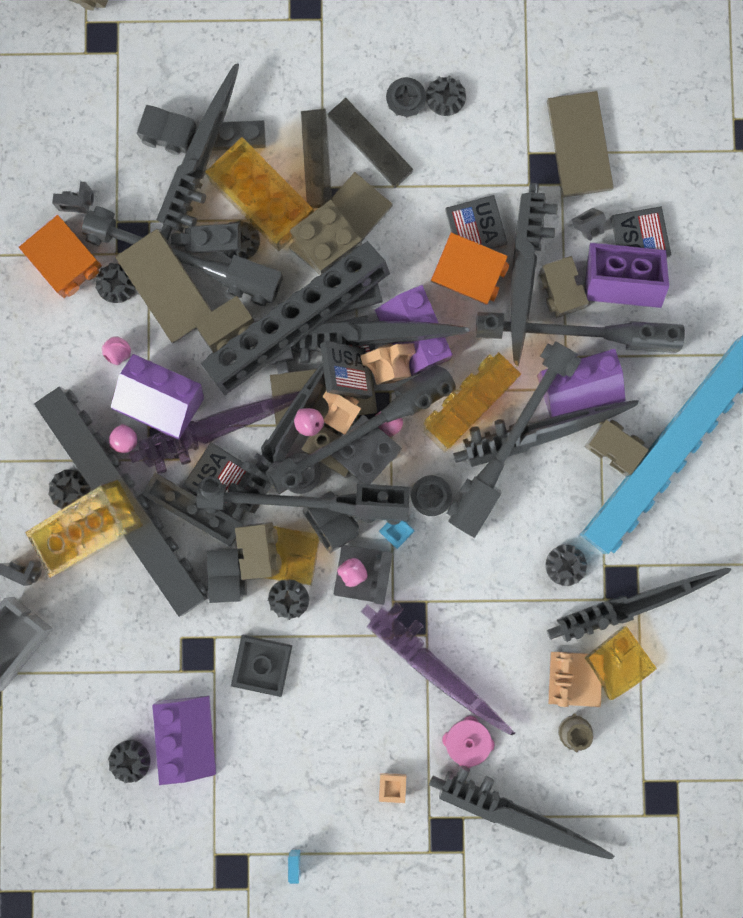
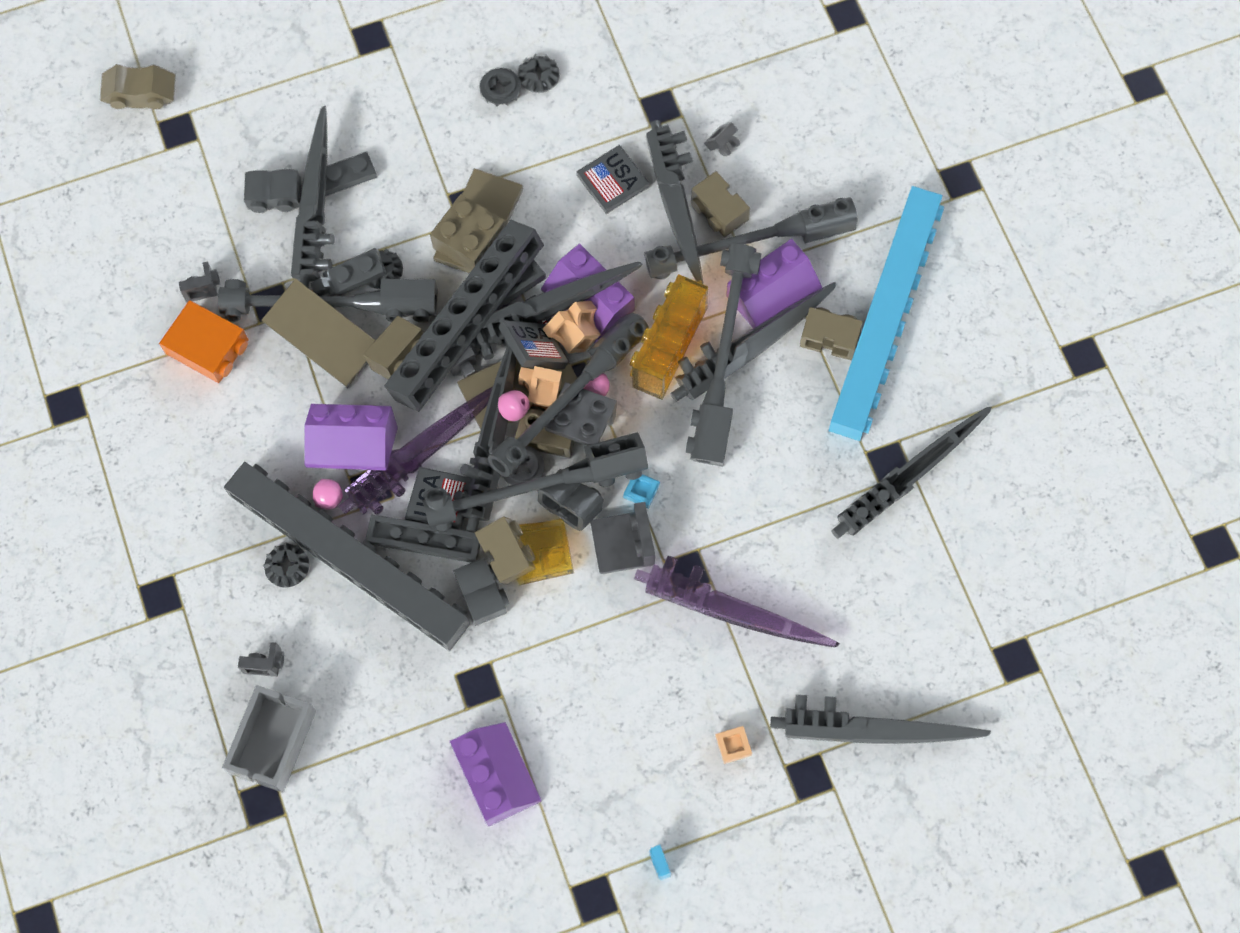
camera: 20 degrees left, 15 degrees down
(83, 528) = (317, 587): clear yellow brick -> none
(116, 350) = (291, 411): bright pink piece -> none
(121, 292) = (276, 357): dark grey gear -> none
(133, 750) = (458, 820): dark grey gear -> none
(258, 193) = (385, 216): clear yellow brick -> none
(261, 665) = (550, 671): dark grey tile -> none
(296, 591) = (542, 587): dark grey gear -> none
(316, 157) = (431, 167): clear smoke tile -> none
(352, 572) = (611, 539): bright pink piece -> none
(370, 142) = (480, 138): clear smoke tile -> none
(440, 487) = (670, 432): dark grey gear -> none
(468, 742) = (795, 671): bright pink piece -> none
(470, 269) = (621, 217): orange brick -> none
(554, 563) = (828, 475): flat silver gear -> none
(573, 681) = (879, 570): light nougat hinge -> none
(575, 733) = (902, 623): dark tan piece -> none
(580, 144) = (685, 74): dark tan tile -> none
(620, 663) = (918, 537): clear yellow plate -> none
(626, 275) = (777, 173): medium lavender slope -> none
(641, 229) = (777, 135): tile -> none

